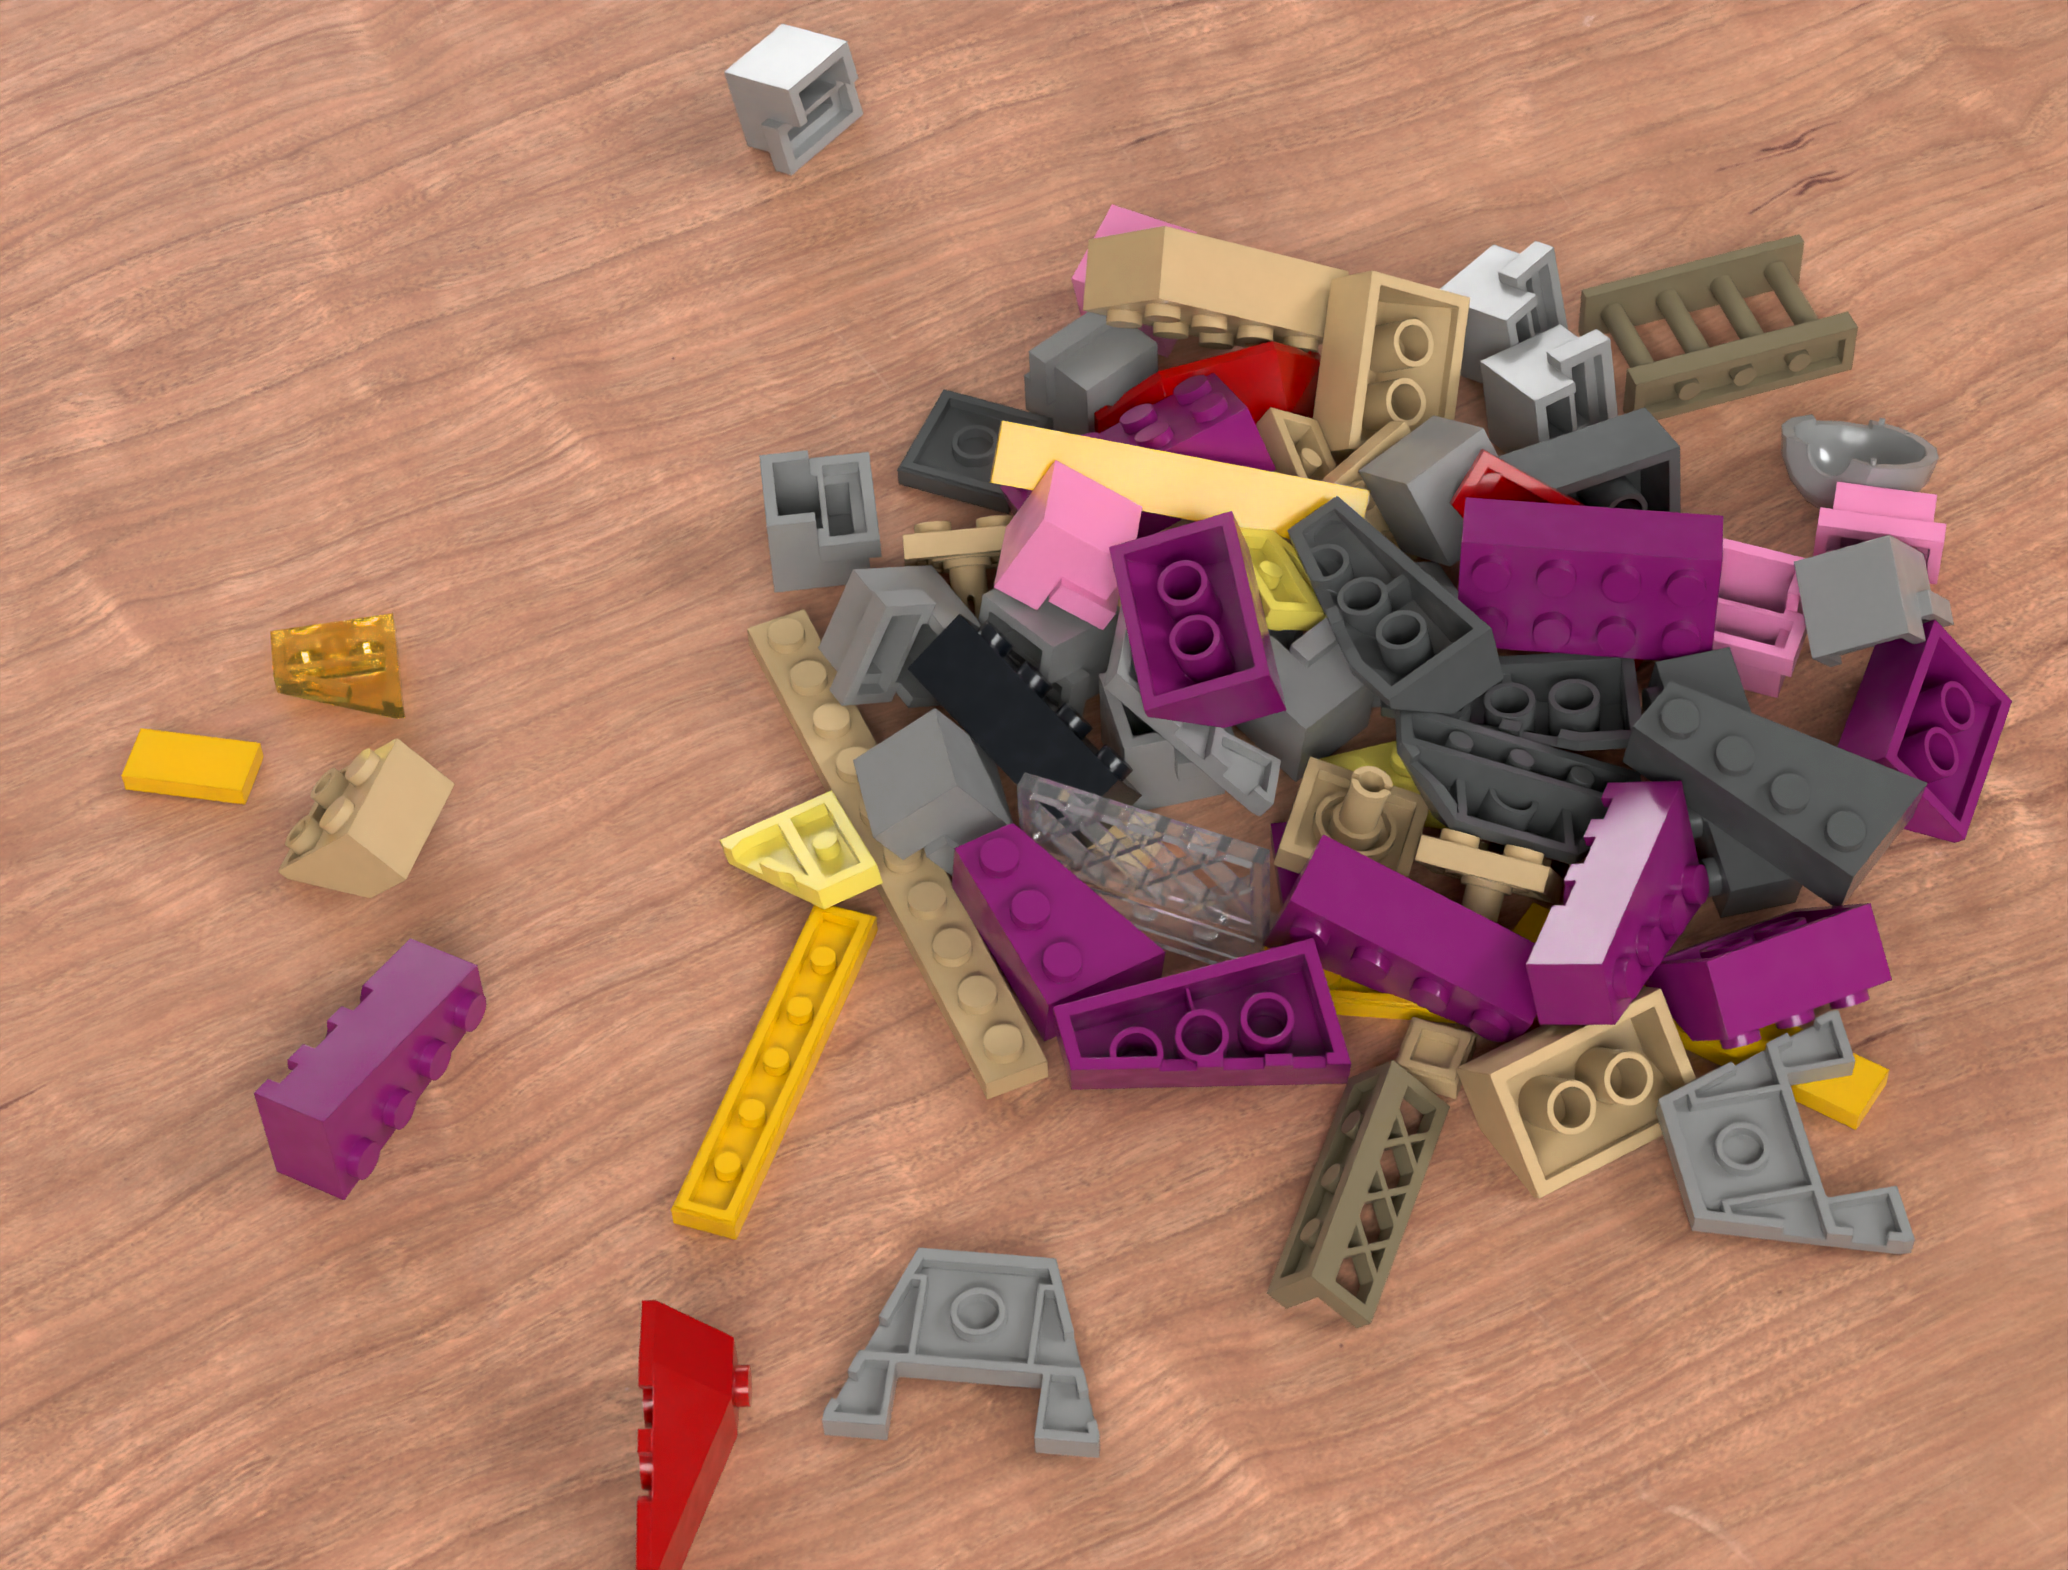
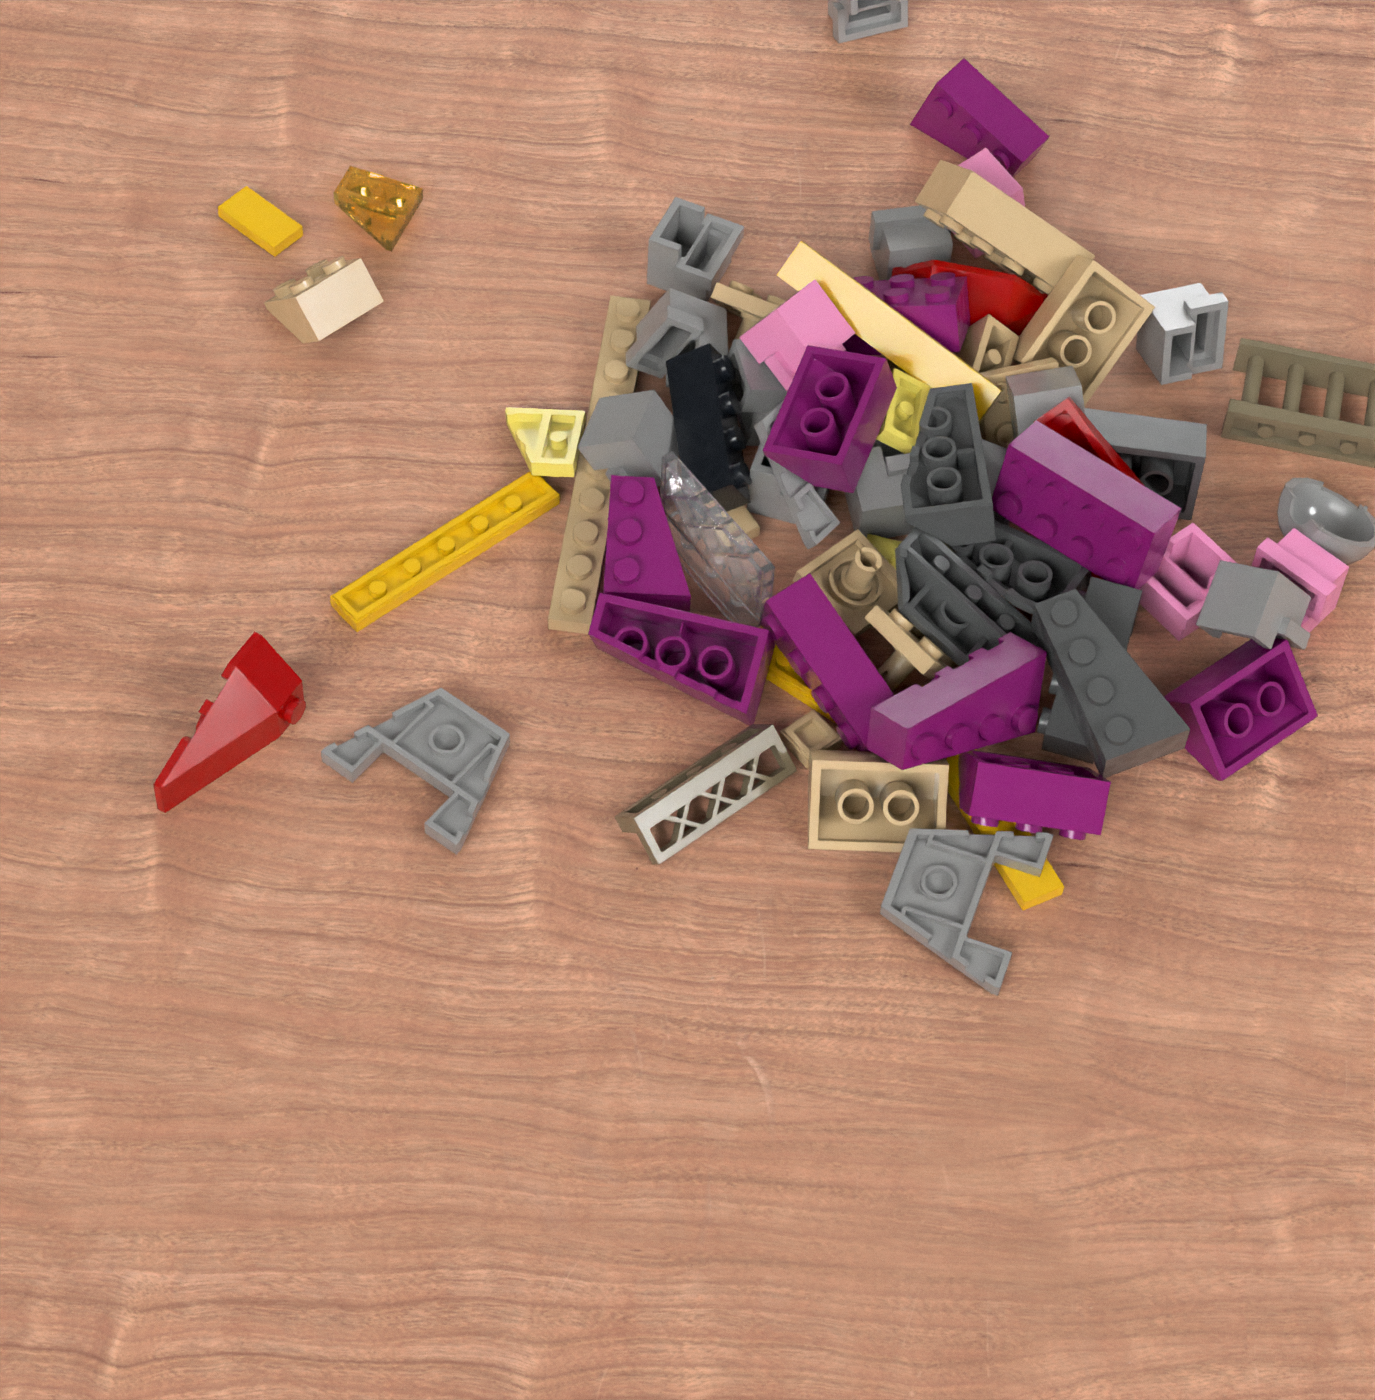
camera: 25 degrees right, 5 degrees up
(370, 1068) = (227, 433): magenta wedge -> none
(958, 449) = (829, 240): dark grey tile -> none
(1051, 182) = (974, 115): none -> magenta wedge
(1548, 387) = (1173, 385): light grey plate -> none

